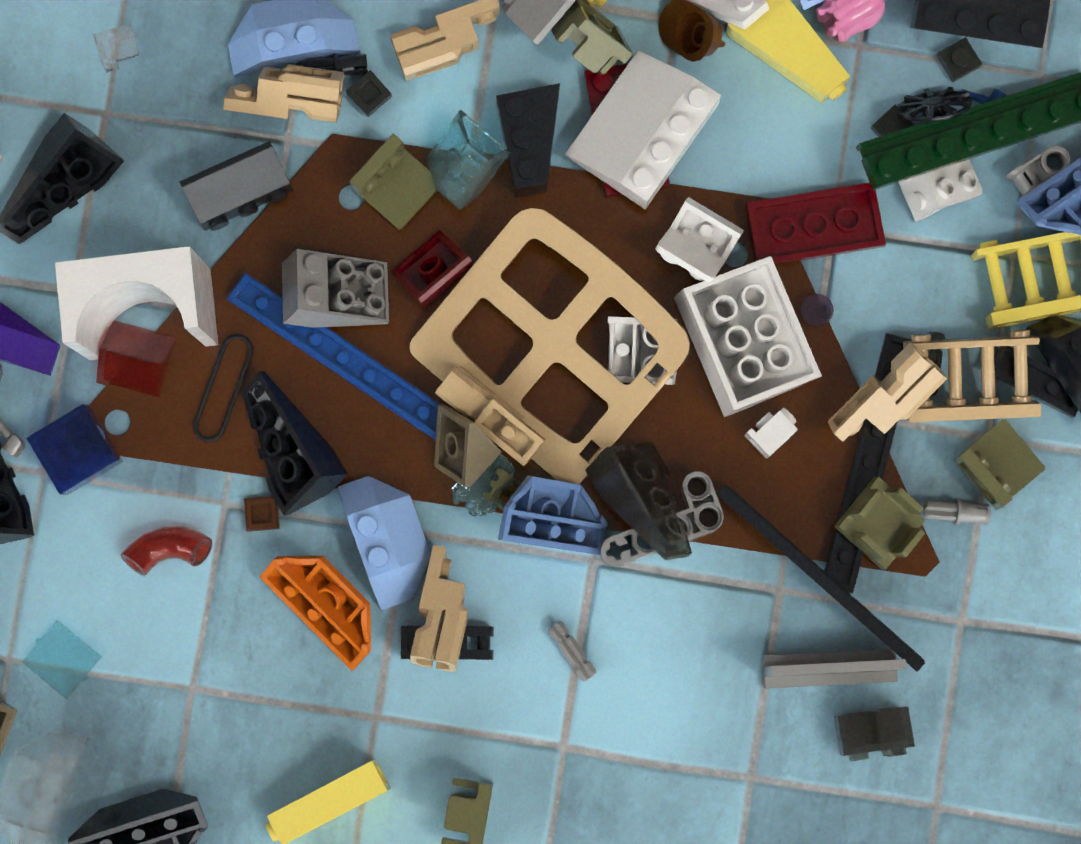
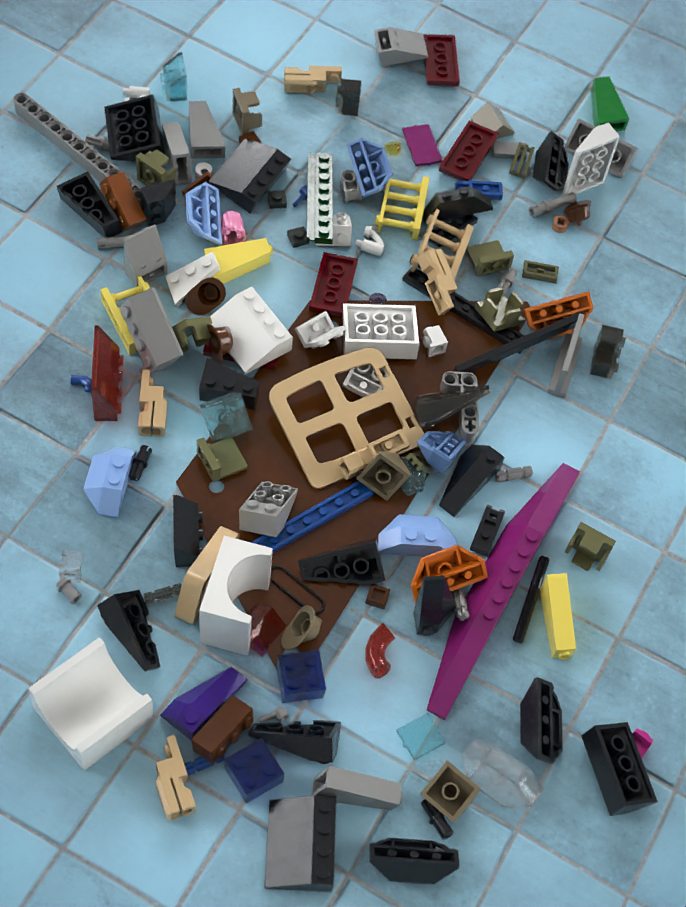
camera: 75 degrees left, 25 degrees down
(81, 61) = (68, 590): none -> light grey pin
(133, 198) = (162, 594): none -> clear smoke axle
(151, 420) = (301, 629): none -> dark tan piece
(210, 243) = (198, 577): none -> tan beam
(252, 605) = (433, 605): none -> black wedge
(287, 89) = (142, 487): tan plate -> none
(289, 645) = (461, 604): none -> light grey axle
(354, 750) = (531, 599): none -> black axle
(369, 93) = (163, 453): pearl dark grey plate -> none
(374, 692) = (491, 595): none -> magenta wedge
(432, 269) = (278, 457): dark red slope -> none
(440, 601) = (474, 518): tan plate -> none
(538, 581) = (470, 475): none -> black wedge
(599, 93) = (220, 342): none -> reddish brown piece
(923, 621) = (556, 310): none -> orange wedge
(927, 254) = (375, 248): none -> white plant
(935, 105) = (298, 210): black wheel -> none
(1001, 566) = (538, 272): none -> olive tile

